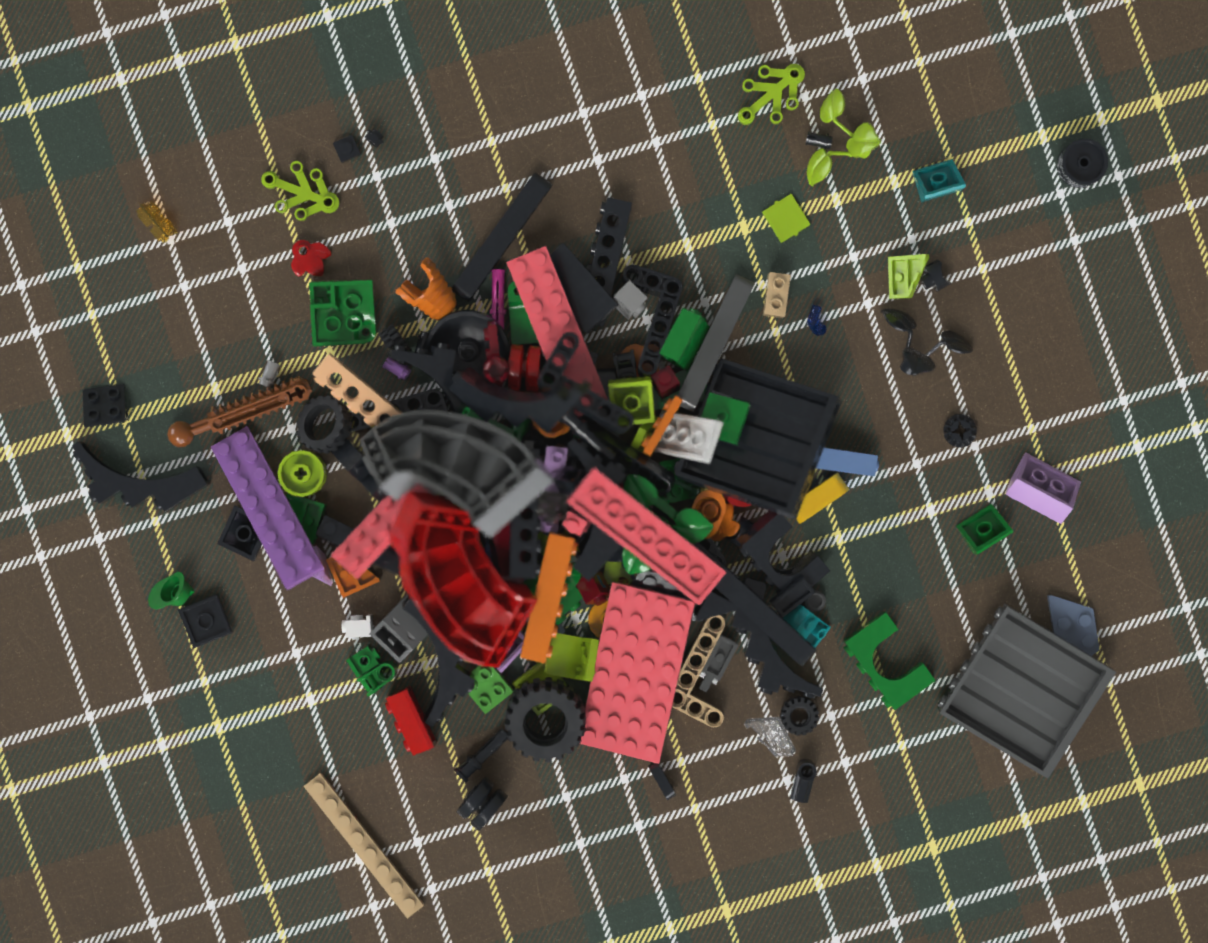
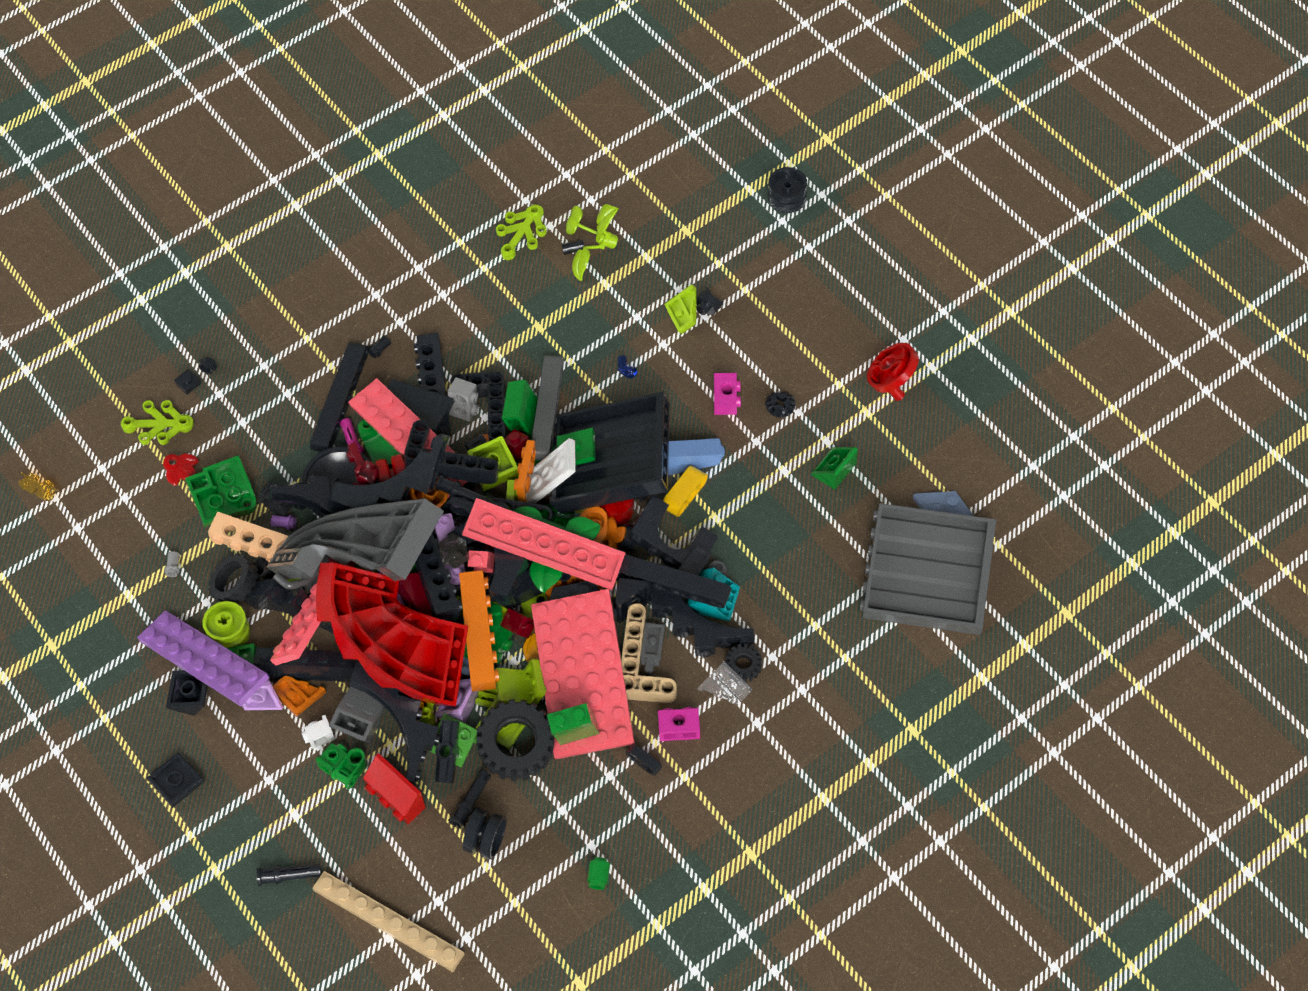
camera: 20 degrees left, 30 degrees down
(104, 405) = (31, 638): black hinge -> none
(135, 491) = (107, 685): black arch -> none
(170, 591) = (137, 765): green piece -> none
(183, 433) = (108, 634): dark orange gear -> none
(311, 768) = (279, 874): none -> black pin
(436, 300) = (296, 452): orange hair -> none
(481, 693) = (446, 765): none -> black piece
(564, 188) = (376, 349): none -> black pin
(575, 879) = (598, 873): none -> green brick
(605, 736) = (573, 724): none -> green brick
(719, 766) = (688, 730): none -> dark pink brick
(776, 295) = (584, 358): tan brick -> none
(786, 218) = (570, 309): lime piece -> none
(803, 783) = (771, 714): black piece -> none
(894, 690) = (815, 612): green arch -> none
(898, 406) = (724, 403): none -> dark pink brick
(915, 361) = (717, 364): black plant -> none
(938, 180) = (682, 242): teal slope -> none
(1043, 488) = (868, 419): lavender slope -> none
(1103, 456) = (893, 369): none -> red piece

